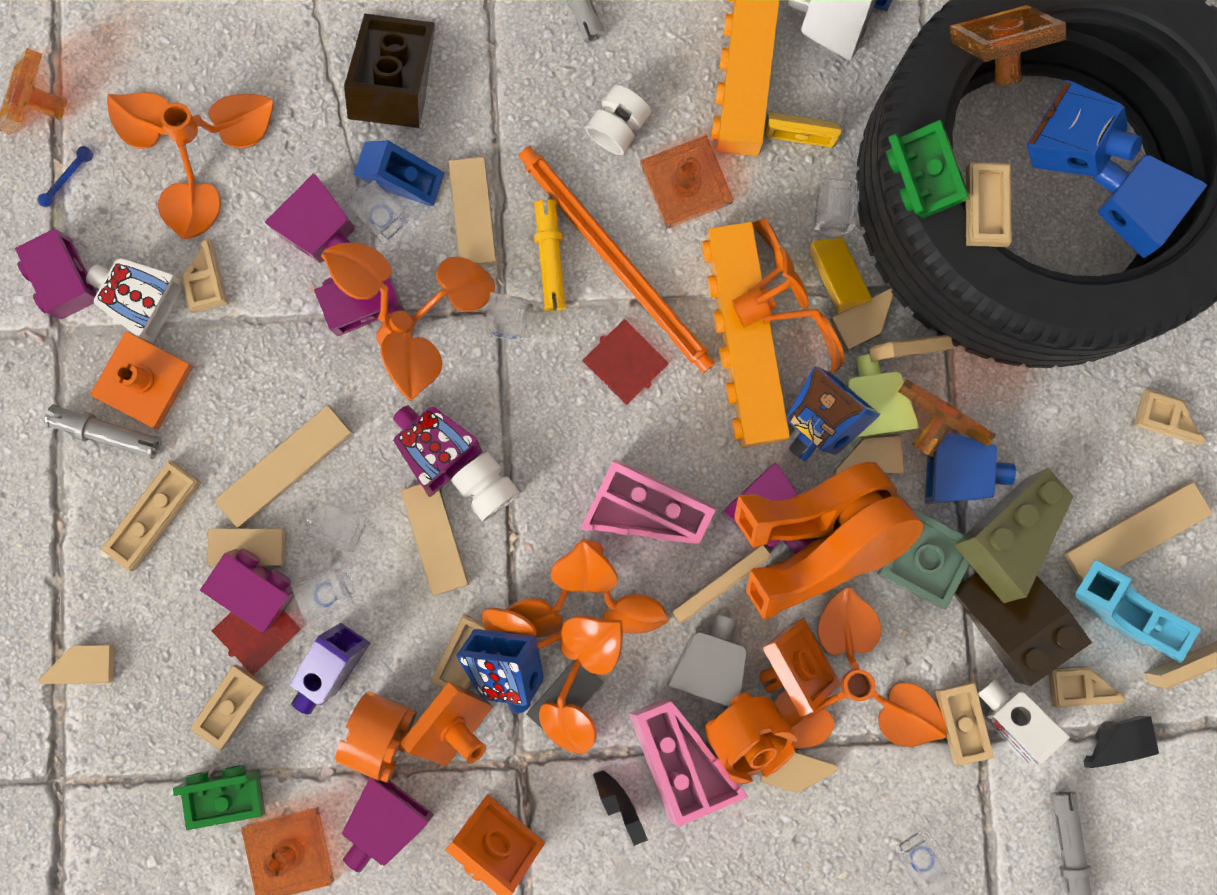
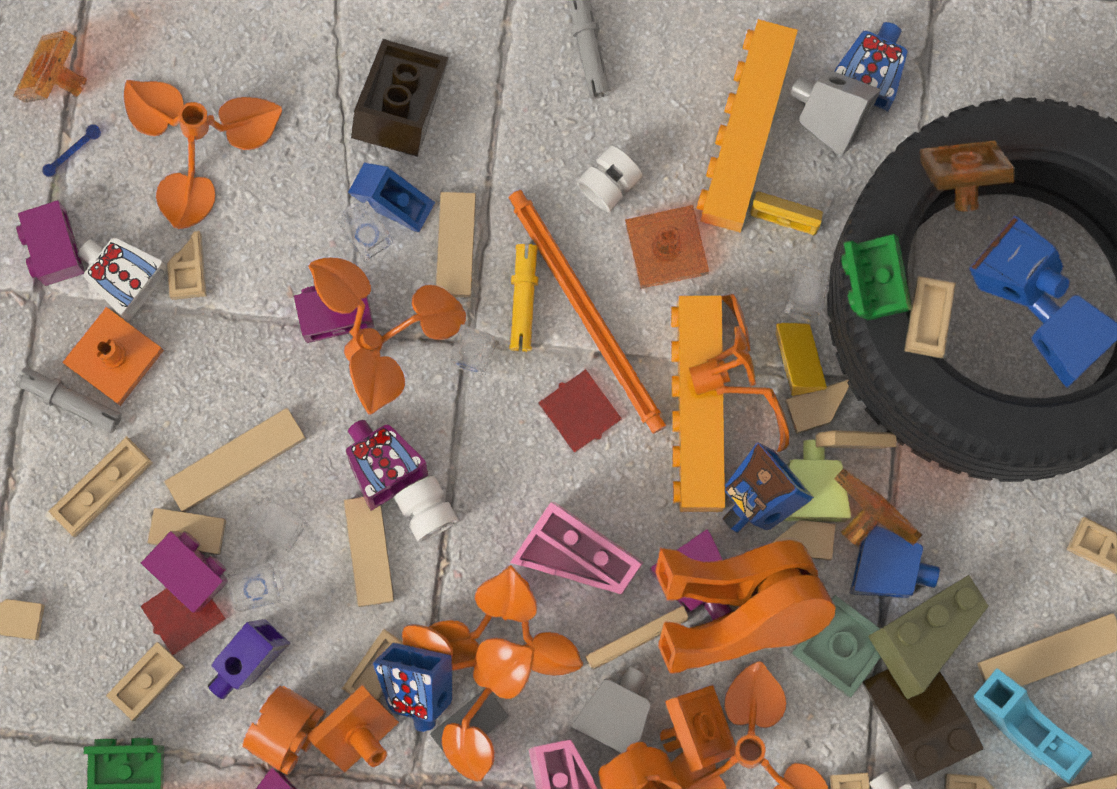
camera: 10 degrees right, 5 degrees down
(311, 220) = (301, 230): magenta torso -> none

